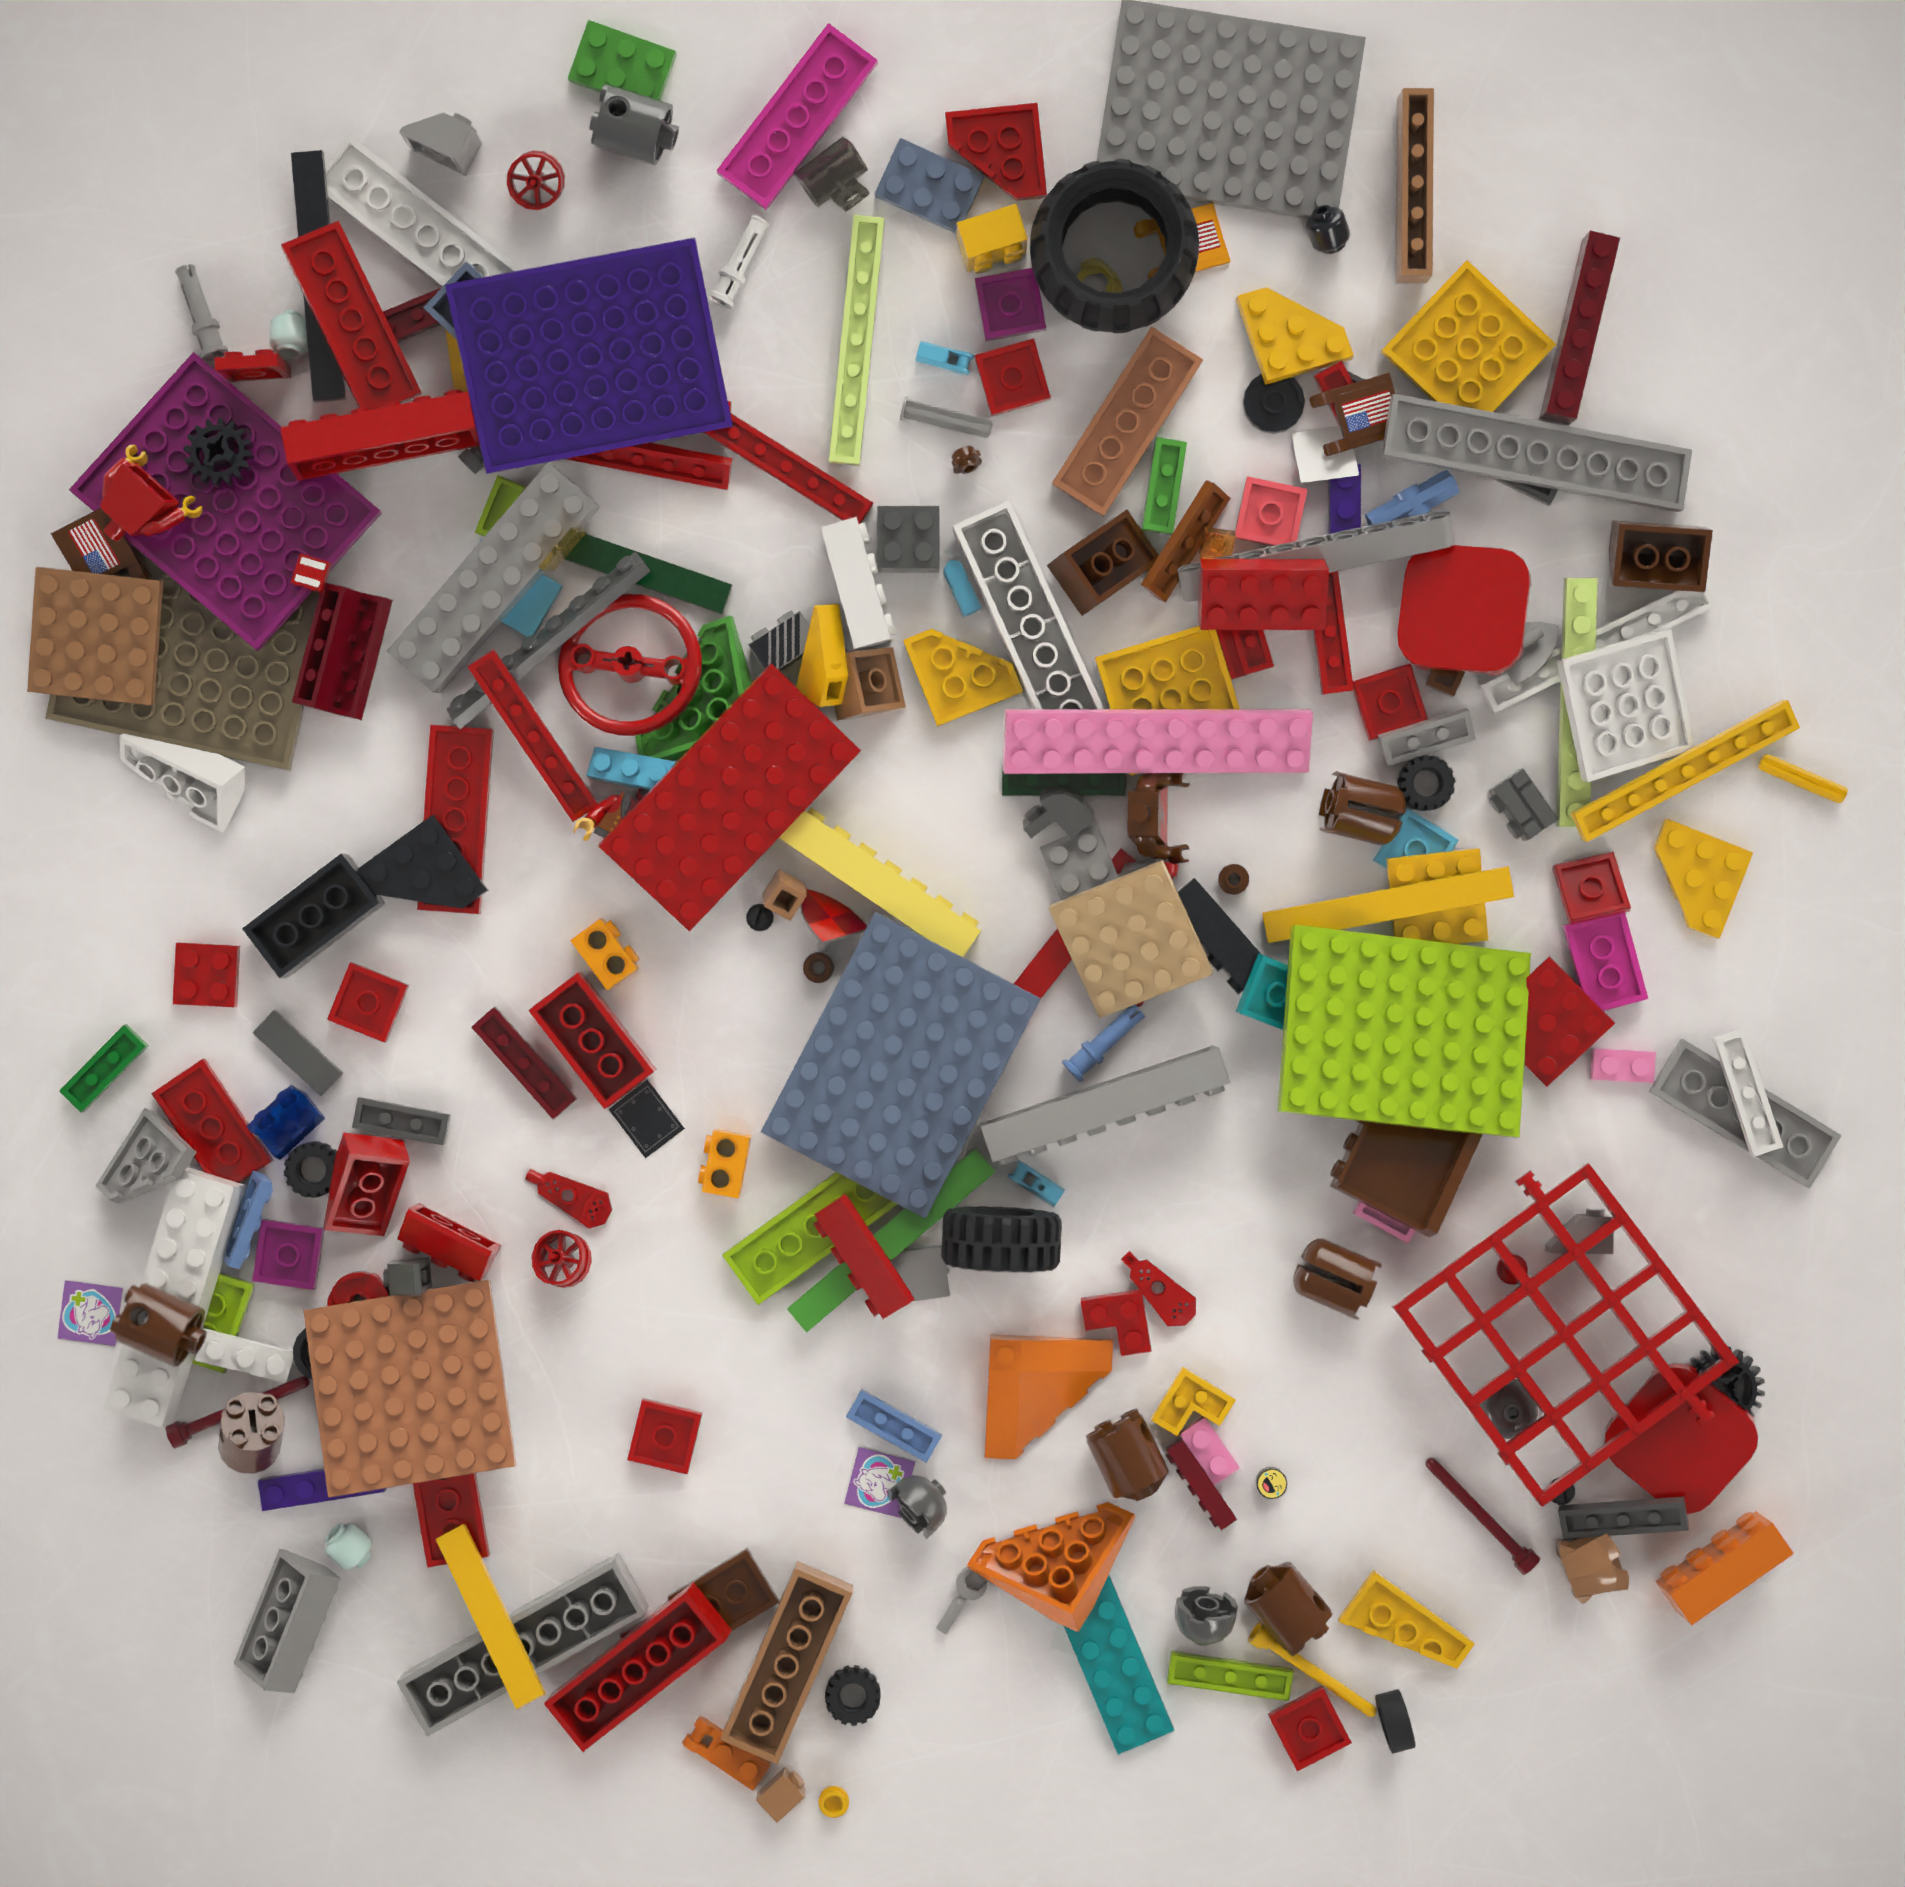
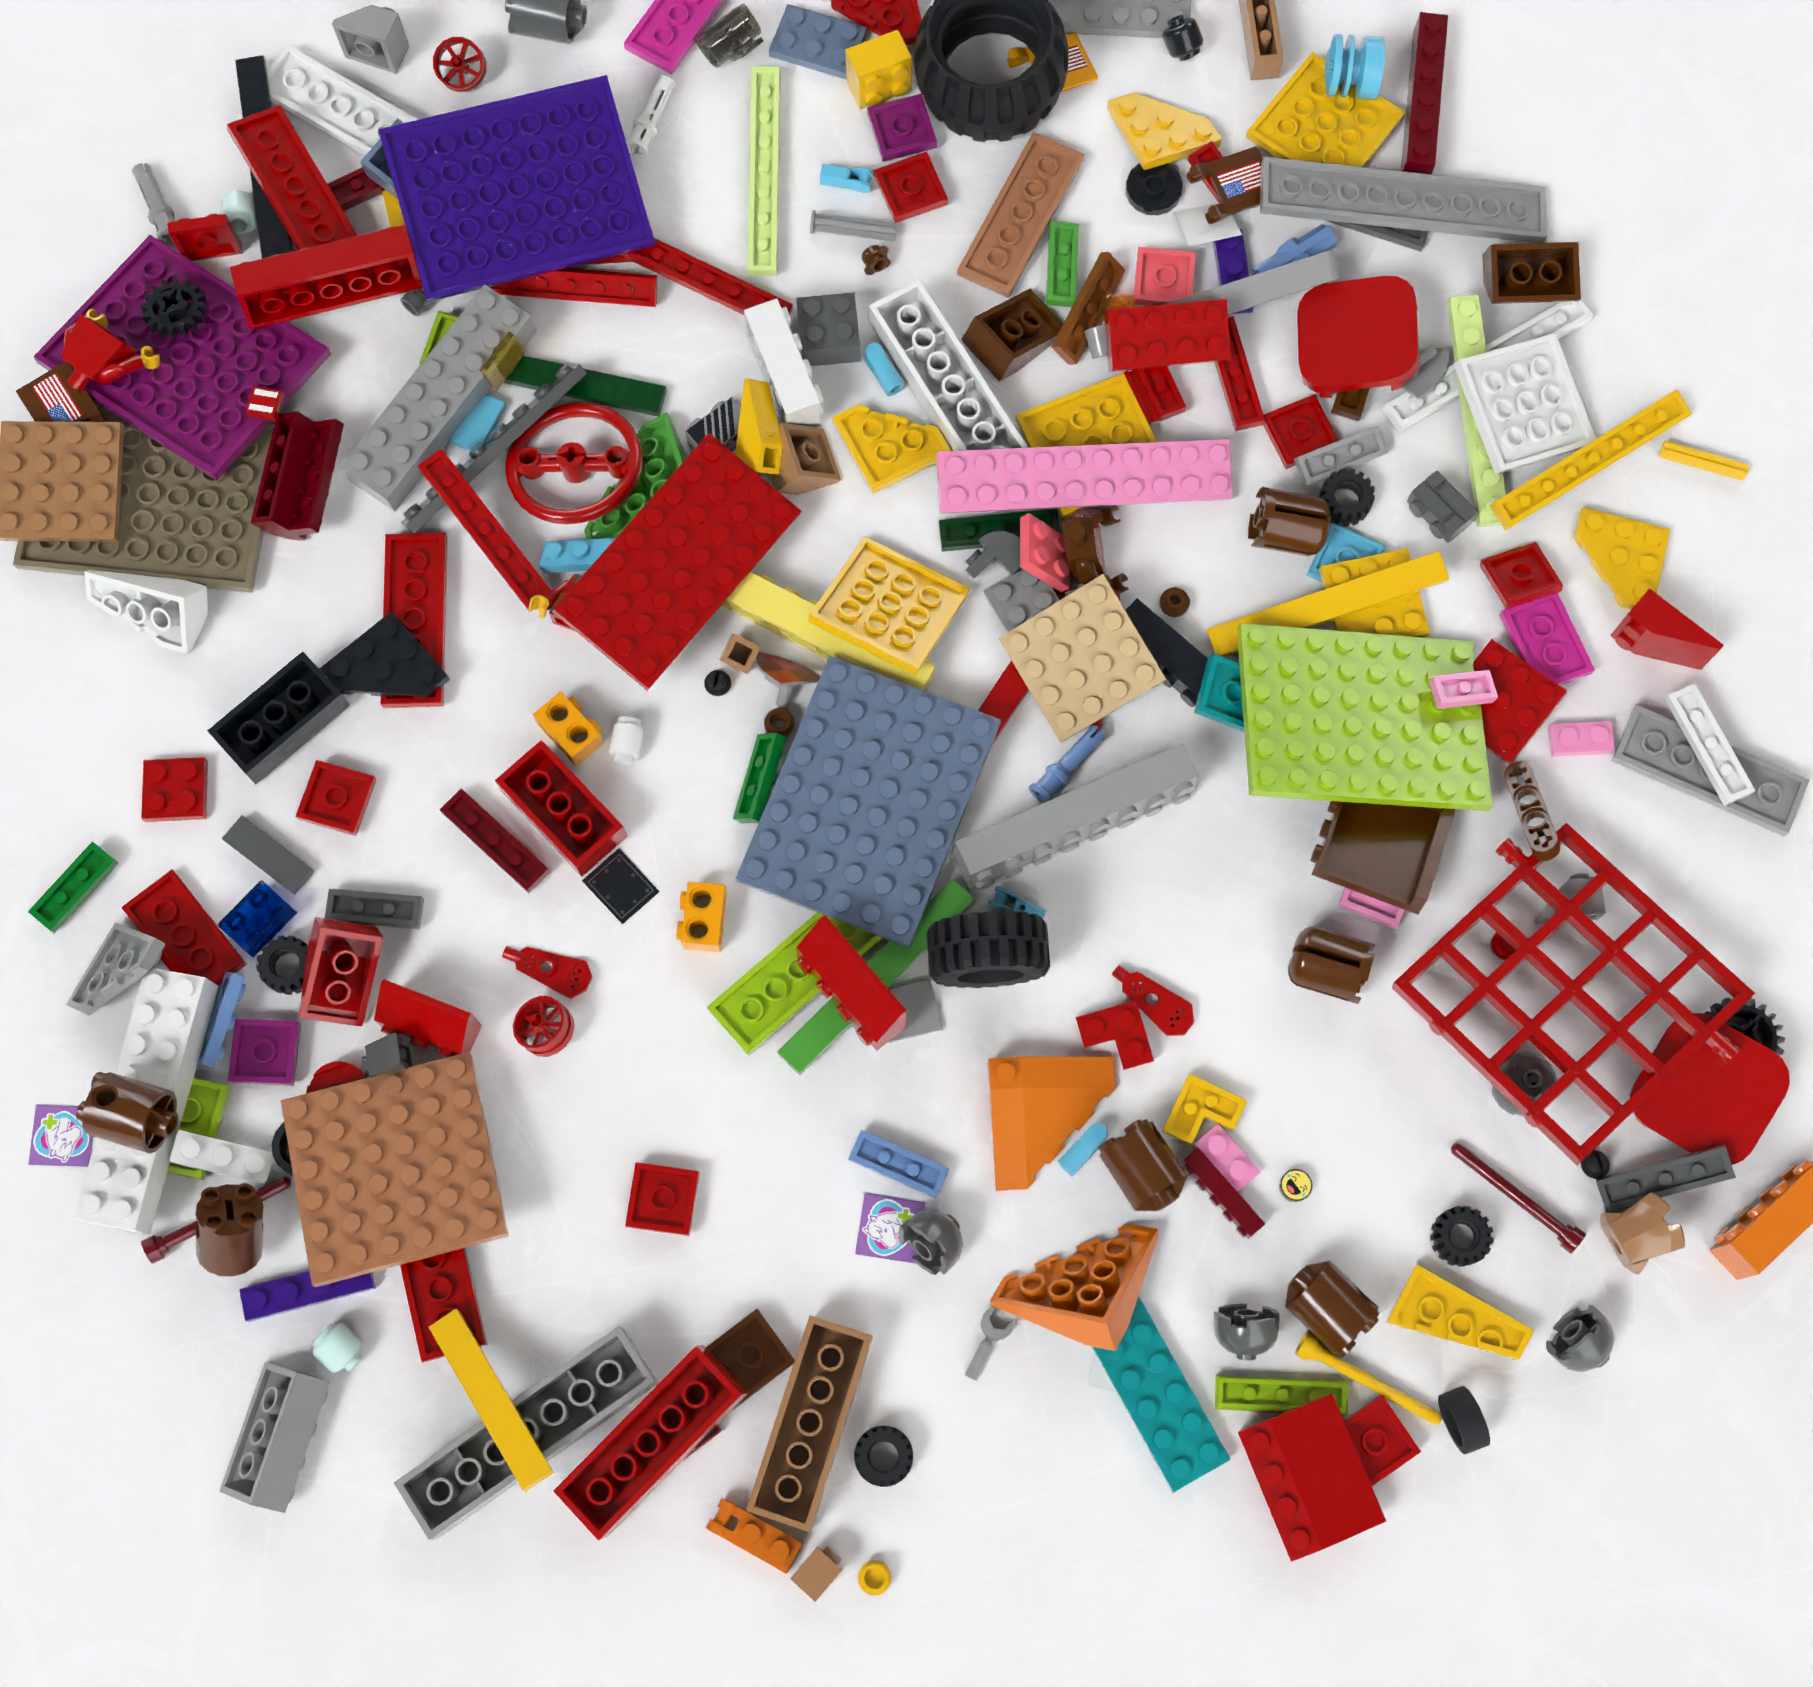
camera: 10 degrees left, 15 degrees down
(663, 972) = (626, 739): none -> white brick
(793, 1025) = (759, 777): none -> green plate
(941, 860) = (889, 605): none -> yellow plate
(1073, 1428) = (1083, 1149): none -> medium azure bar
(1104, 820) = (1044, 553): none -> coral plate
(1245, 1756) = (1311, 1477): none -> red slope
(1426, 1566) = (1475, 1222): none -> black tyre
(1507, 296) = (1355, 66): none -> medium azure wheel
(1509, 1014) = (1463, 689): none -> bright pink plate
(1517, 1658) = (1582, 1340): none -> dark grey cylinder
(1562, 1143) = (1532, 810): none -> reddish brown beam
(1714, 963) = (1665, 634): none -> red slope

